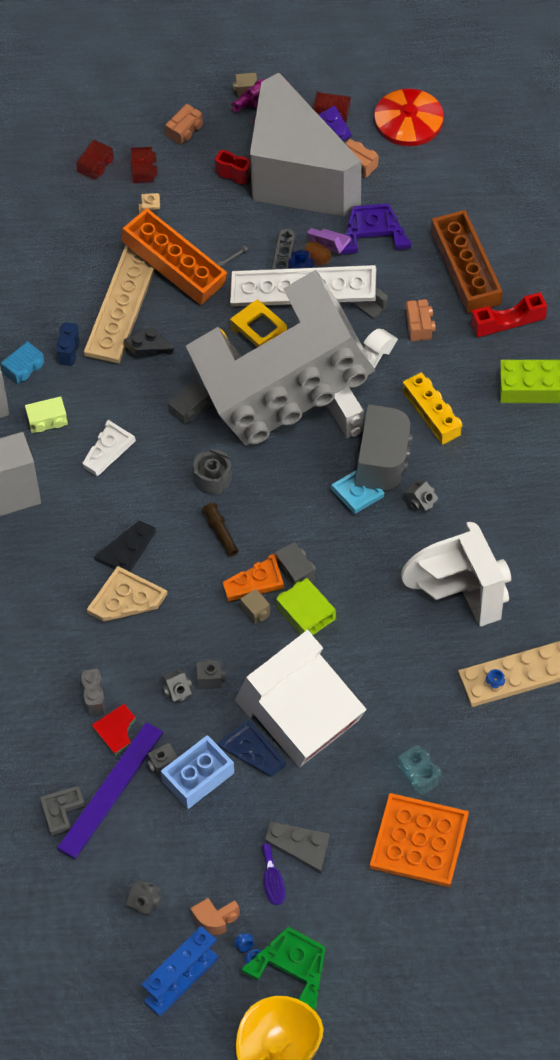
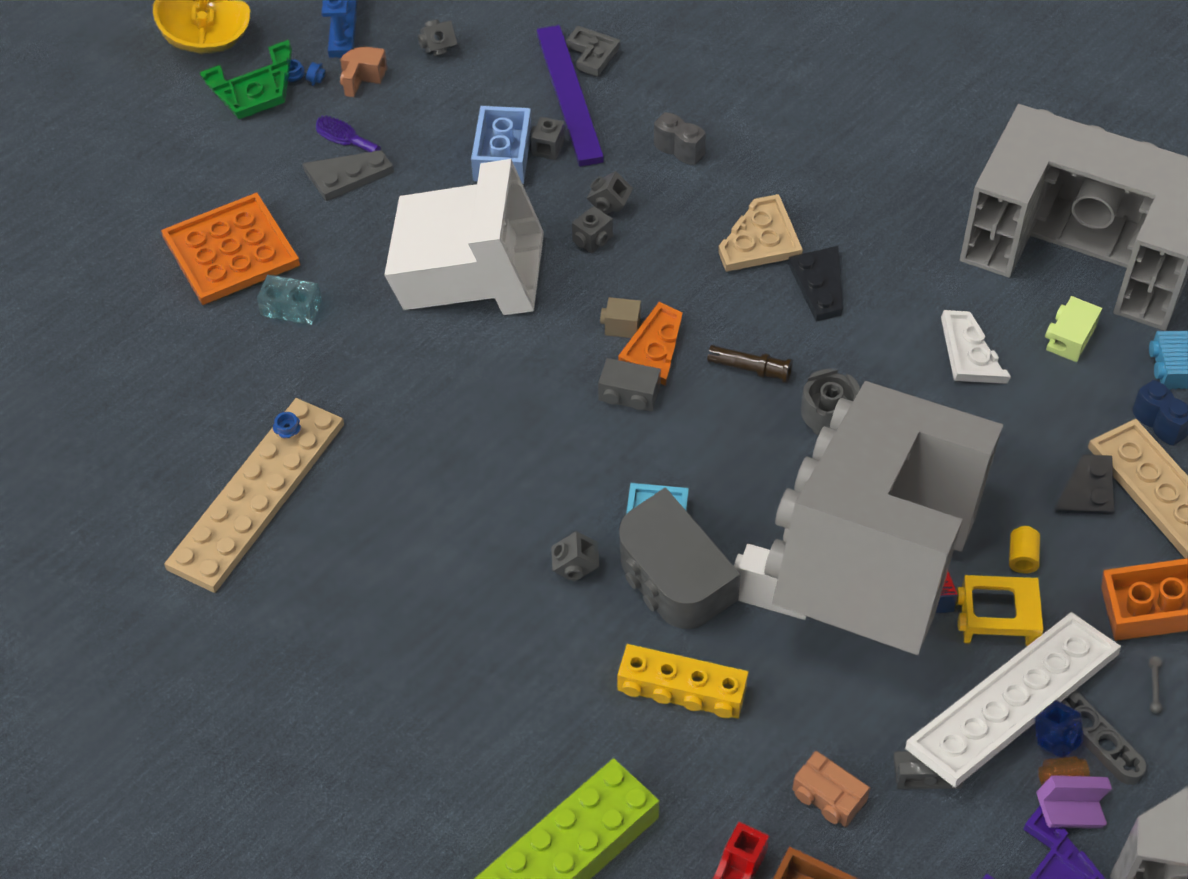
camera: 135 degrees right, 5 degrees down
(114, 729) = (625, 135): red tile -> none
(305, 608) = (569, 354): lime brick -> none
(377, 344) = (836, 703): white brick -> none
(465, 566) = (417, 482): white plate -> none

